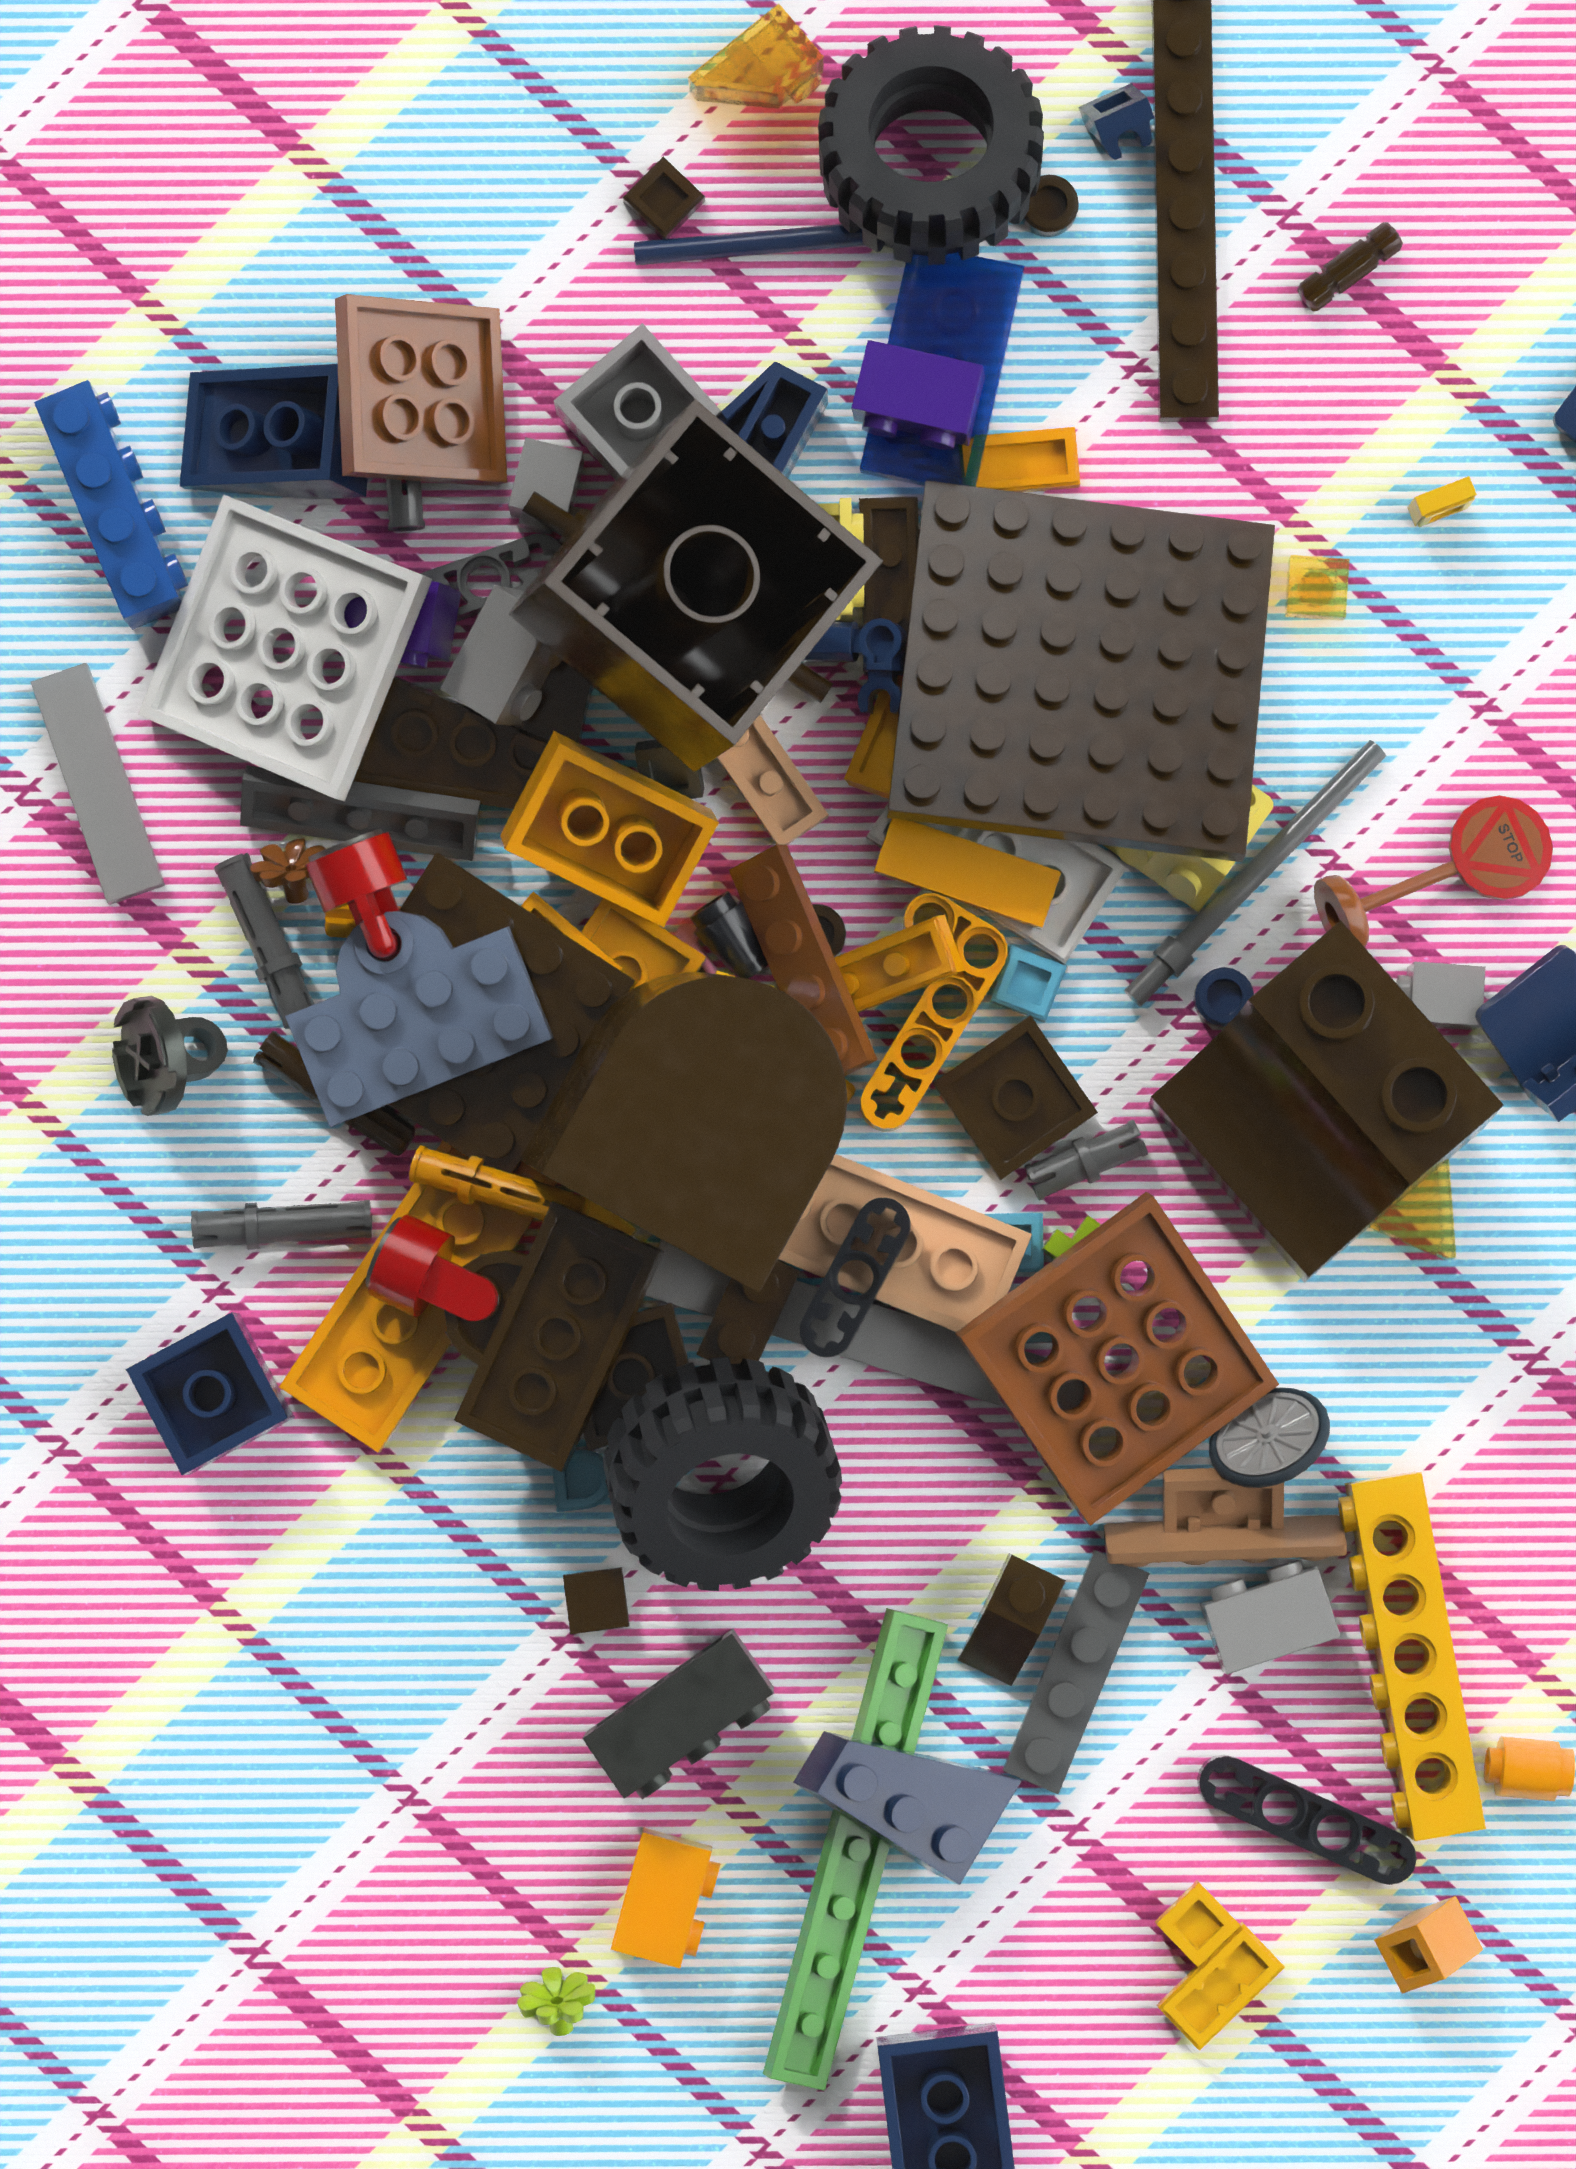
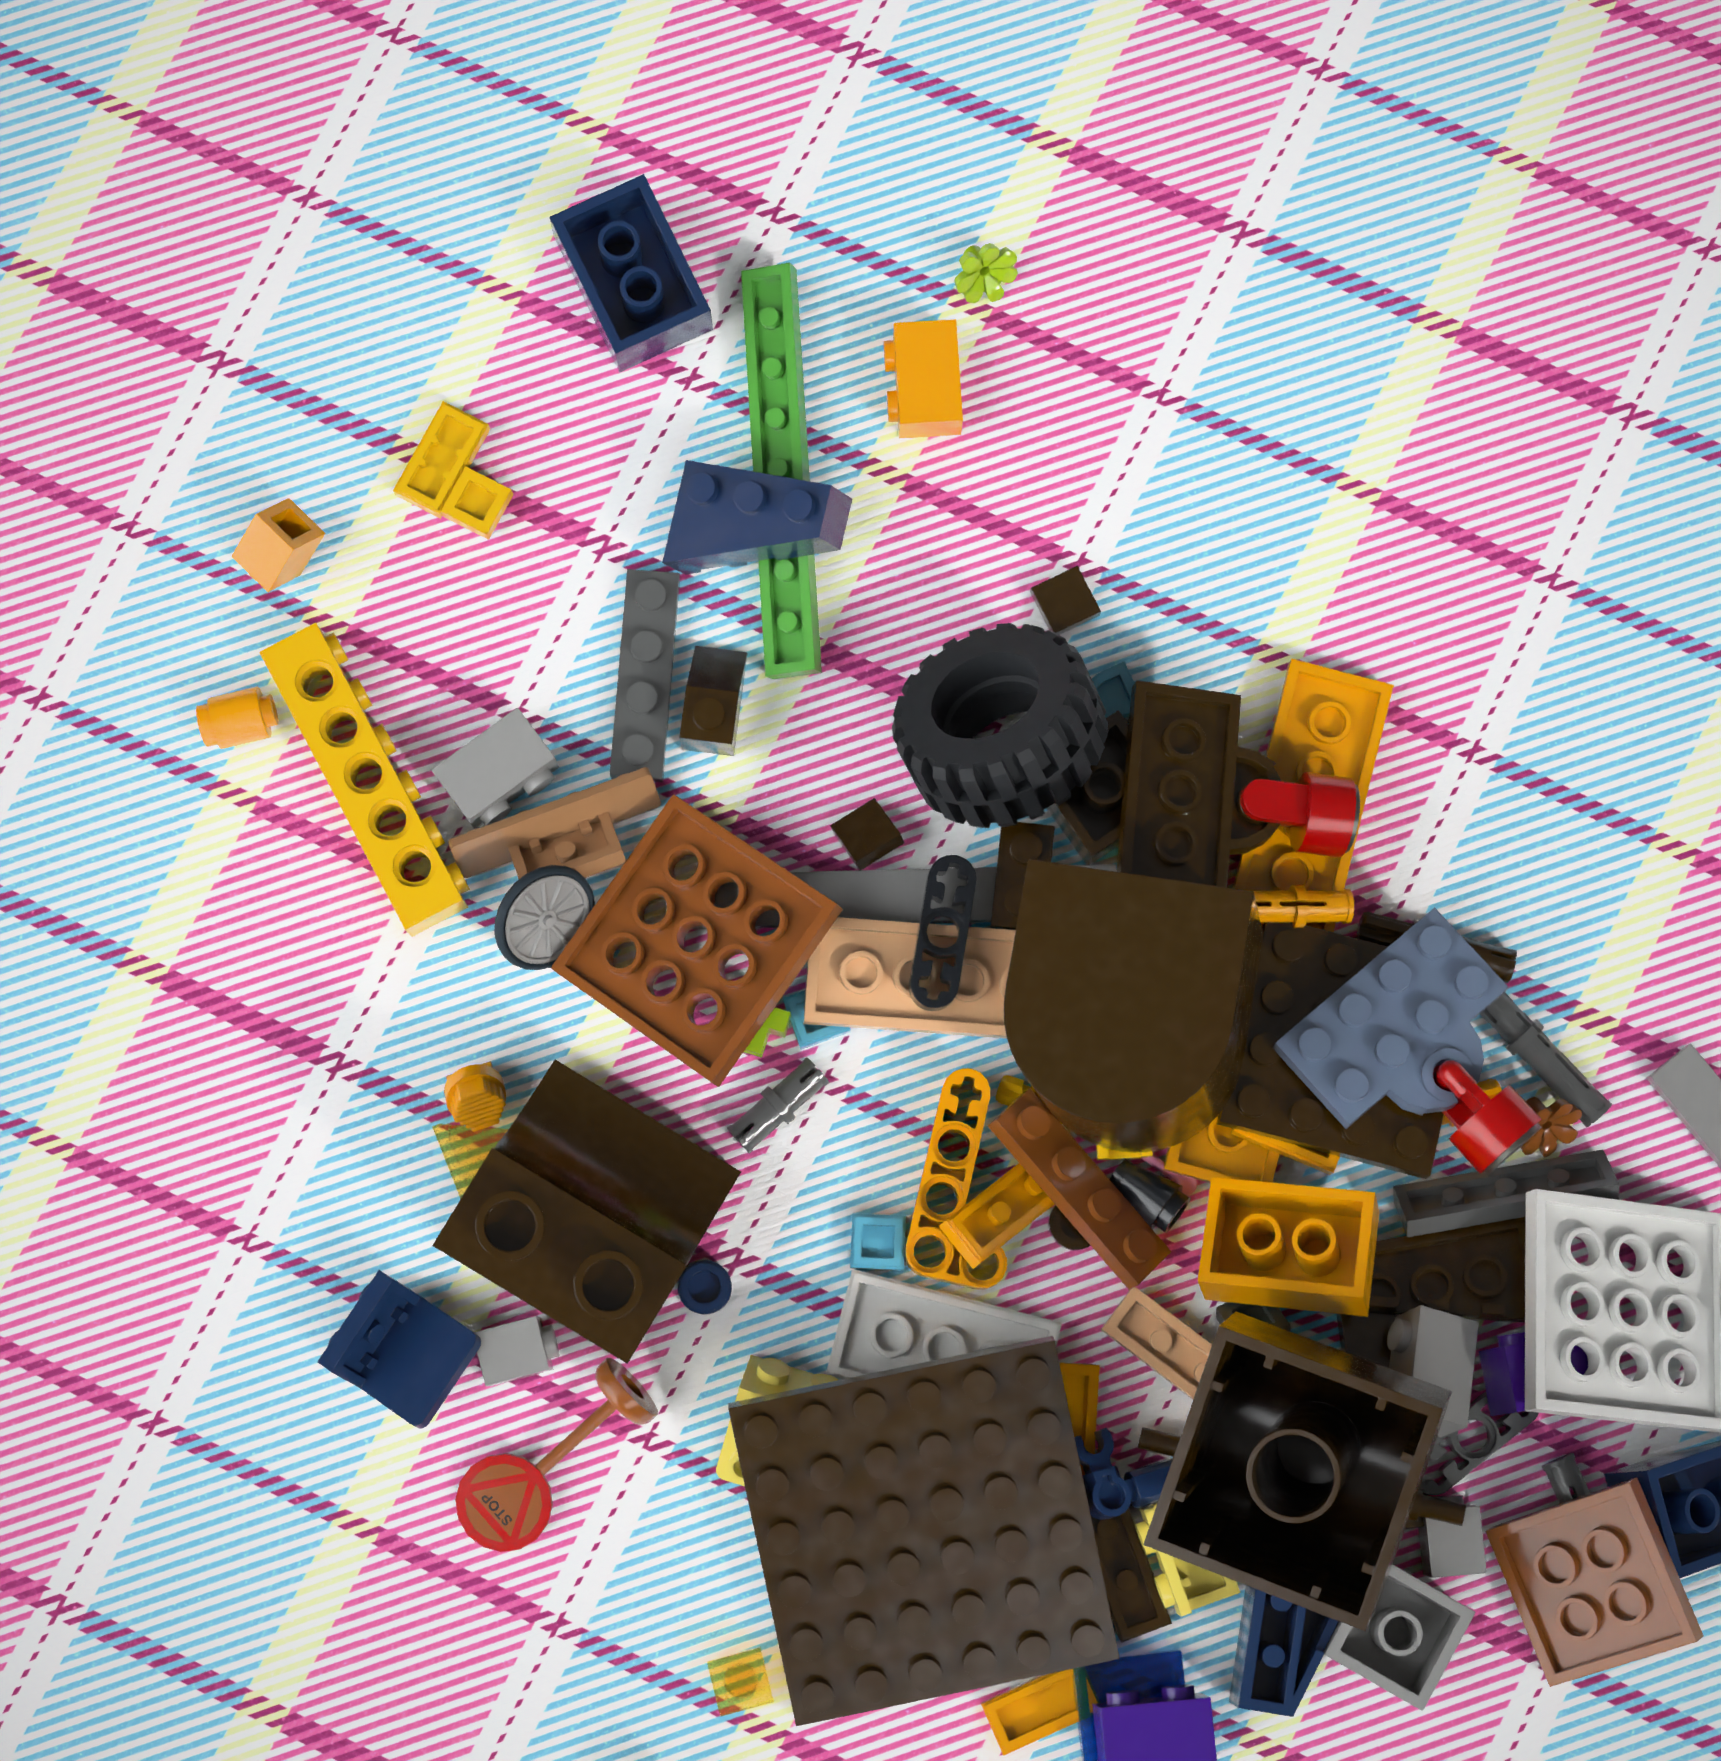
camera: 160 degrees right, 5 degrees down
(152, 1053) = (1602, 924): pearl dark grey tile -> none
(210, 1393) = (1449, 657): dark blue brick -> none
(281, 1224) = (1451, 817): dark grey pin -> none
(680, 1716) = (964, 523): pearl dark grey brick -> none
(896, 1416) = (867, 834): none -> dark brown tile
(967, 872) = (963, 1317): light orange tile -> none
(1015, 1098) = (856, 1137): dark brown plate -> none
(1176, 954) = (759, 1309): dark grey bar -> none
(1308, 1814) = (414, 610): black beam -> none
(1400, 1274) = (475, 1096): none -> light orange piece

